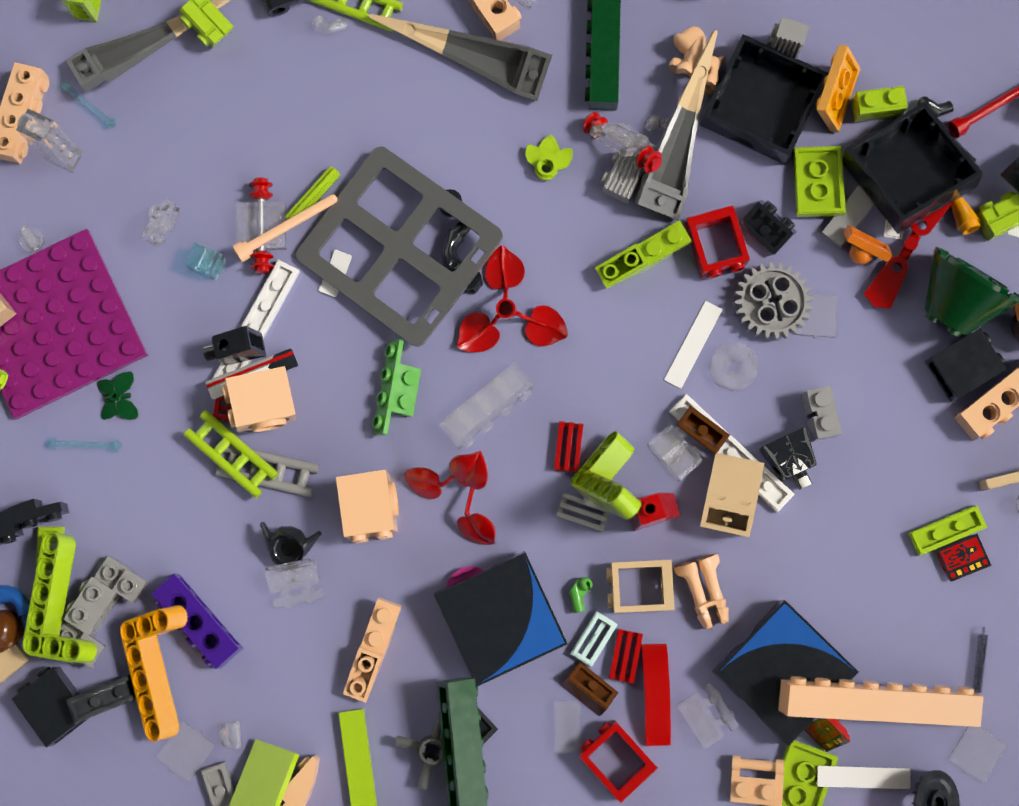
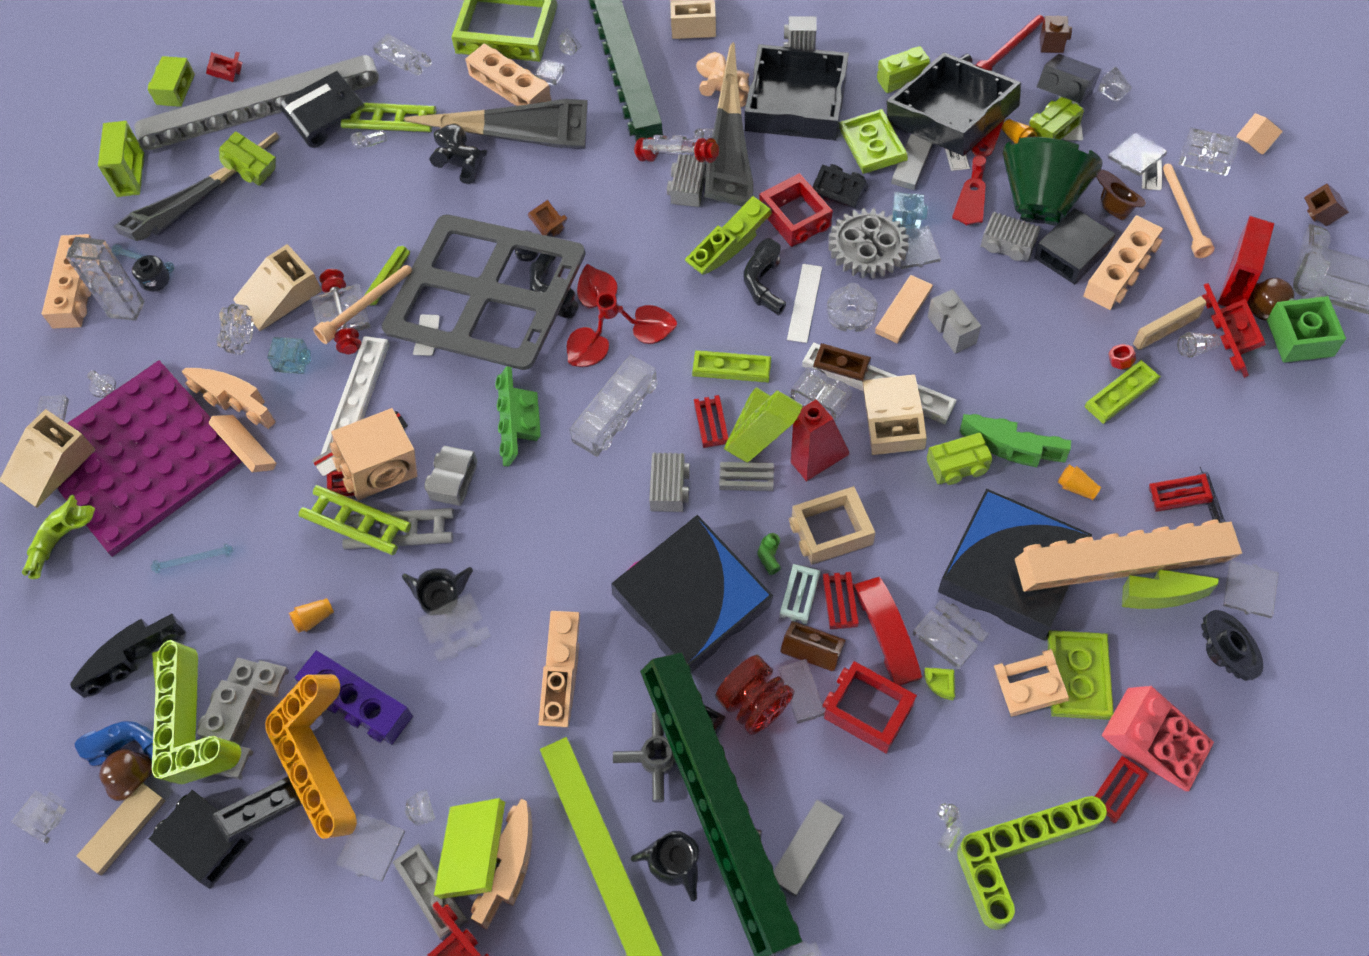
camera: 15 degrees left, 20 degrees down
(93, 129) = (150, 273): none -> black head
(116, 397) = (219, 504): dark green piece -> none
(140, 282) = (229, 391): none -> light nougat slope
(147, 343) = (242, 443): none -> light nougat tile
(174, 533) = (310, 614): none -> light orange cone
(206, 183) = (277, 287): none -> tan slope
(236, 346) = (334, 410): black torso -> none
(324, 434) = (451, 475): none -> light grey brick
(368, 505) = (516, 523): light nougat brick -> none
(410, 56) = (455, 152): none -> black animal
(470, 472) = (616, 445): red plant -> none
(478, 180) = (547, 219): none -> dark orange bracket
(512, 500) = (667, 482): none -> light grey brick
(525, 727) = (754, 694): none -> clear red wheel
(548, 155) = (610, 188): lime plate -> none
(604, 394) = (731, 366): none -> lime tile
(671, 287) = (764, 258): none -> black piece
(684, 754) = (941, 682): none -> lime tile
(708, 567) = (894, 485): light nougat piece -> none
(774, 556) = (959, 459): none -> lime brick
(782, 381) = (903, 309): none -> light nougat tile
(791, 457) = (939, 366): black torso -> none
(814, 280) = (909, 209): none -> clear light blue brick
(820, 548) = (1019, 447): none -> bright green slope
(828, 733) = (1084, 606): piece -> none
(838, 88) = (861, 64): light orange plate -> none
(864, 777) = (1143, 647): white sticker -> none
(865, 246) = (937, 177): orange tile -> none
(870, 610) = (1078, 482): none -> light orange cone
(903, 735) = (1166, 590): none -> lime slope
(908, 337) = (1010, 237): none -> light grey brick
(932, 644) = (1160, 505): none -> red tile
(961, 496) = (1122, 356): none -> red tile
(963, 557) = (1149, 410): piece -> none

